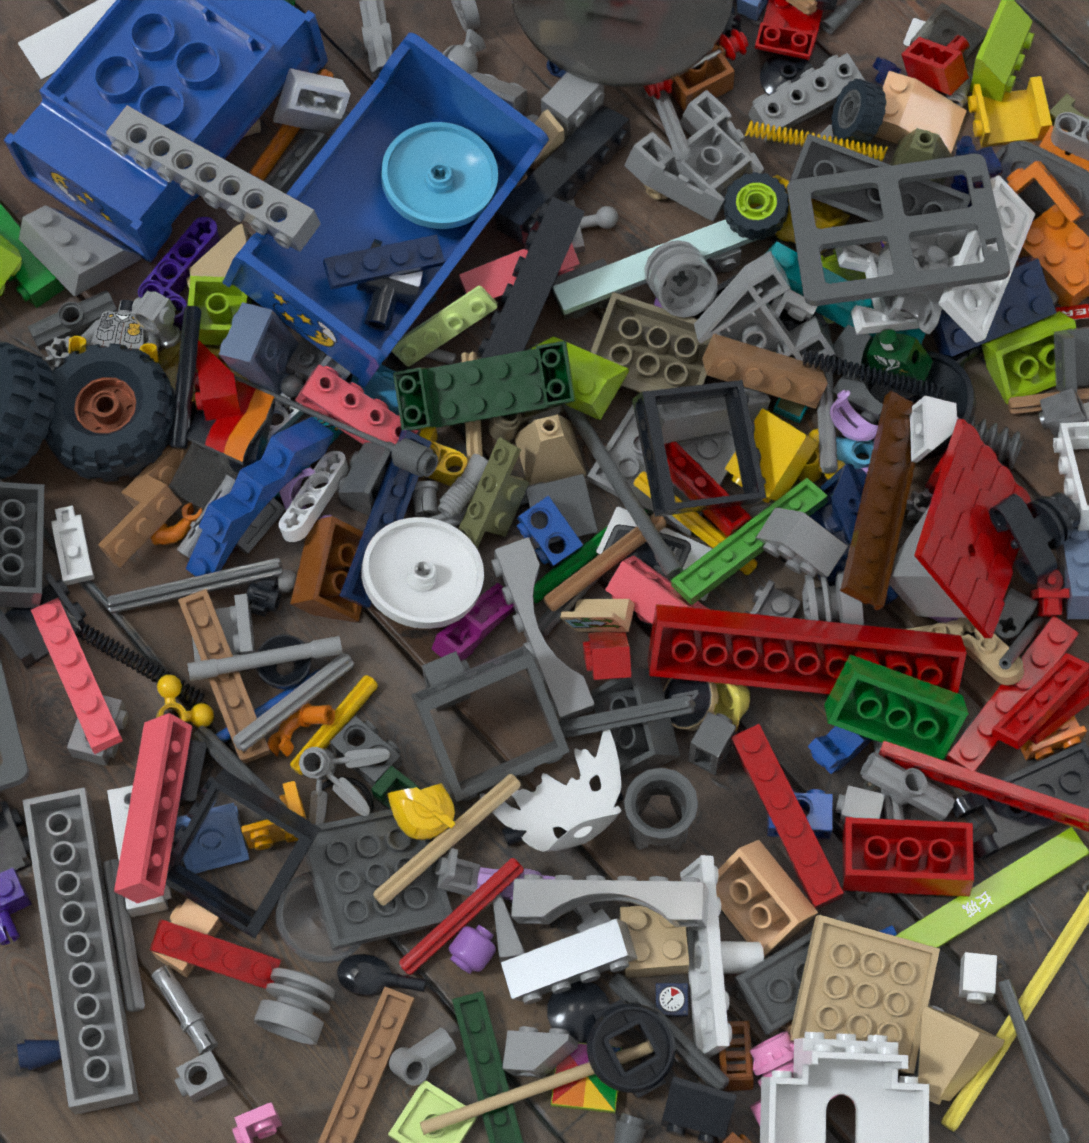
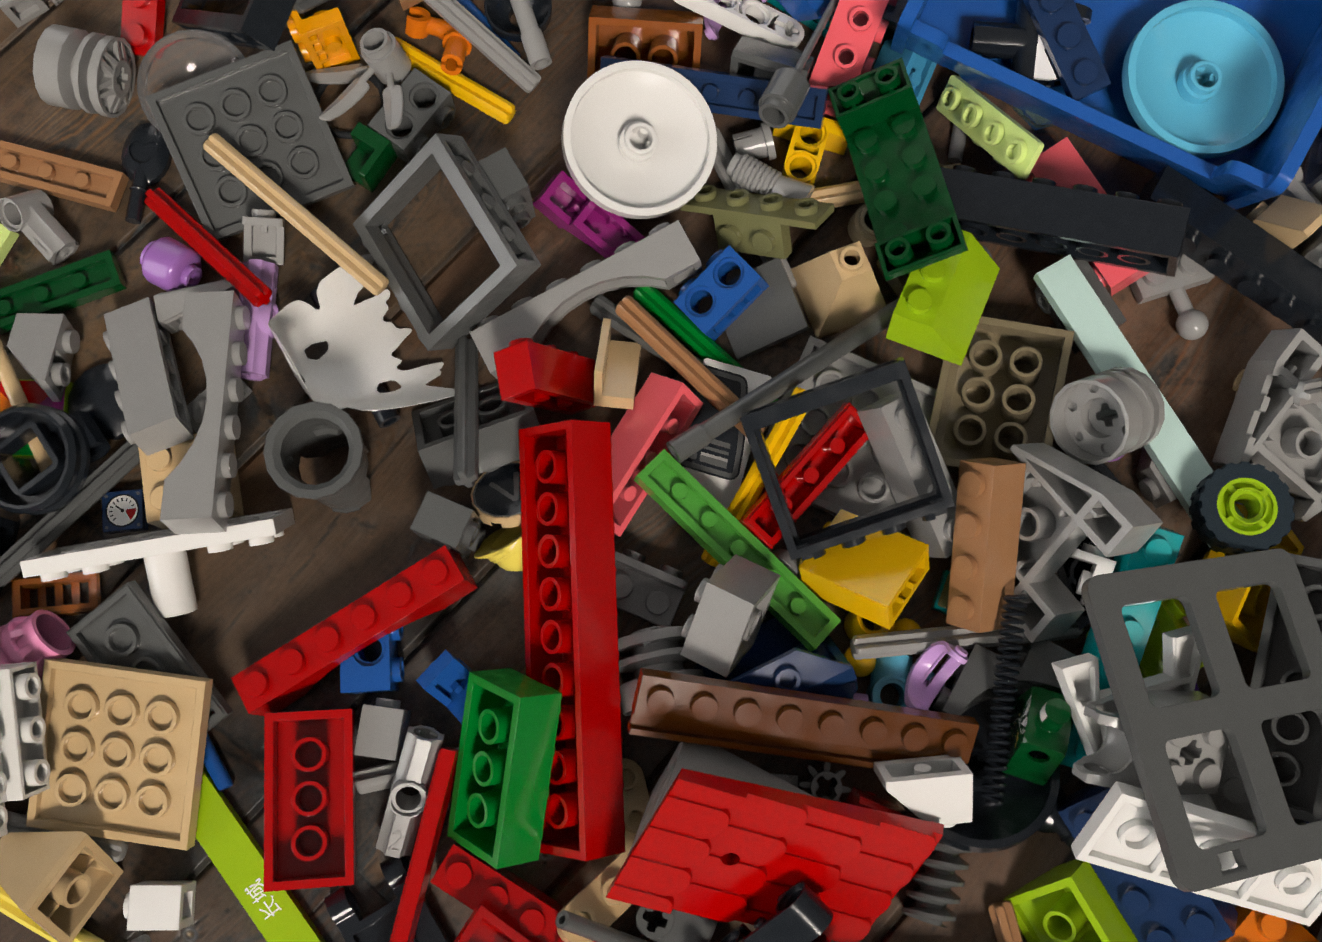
camera: 80 degrees right, 10 degrees up
(422, 812) = (327, 179): yellow helmet -> none
(761, 898) = (254, 610): light nougat slope -> none

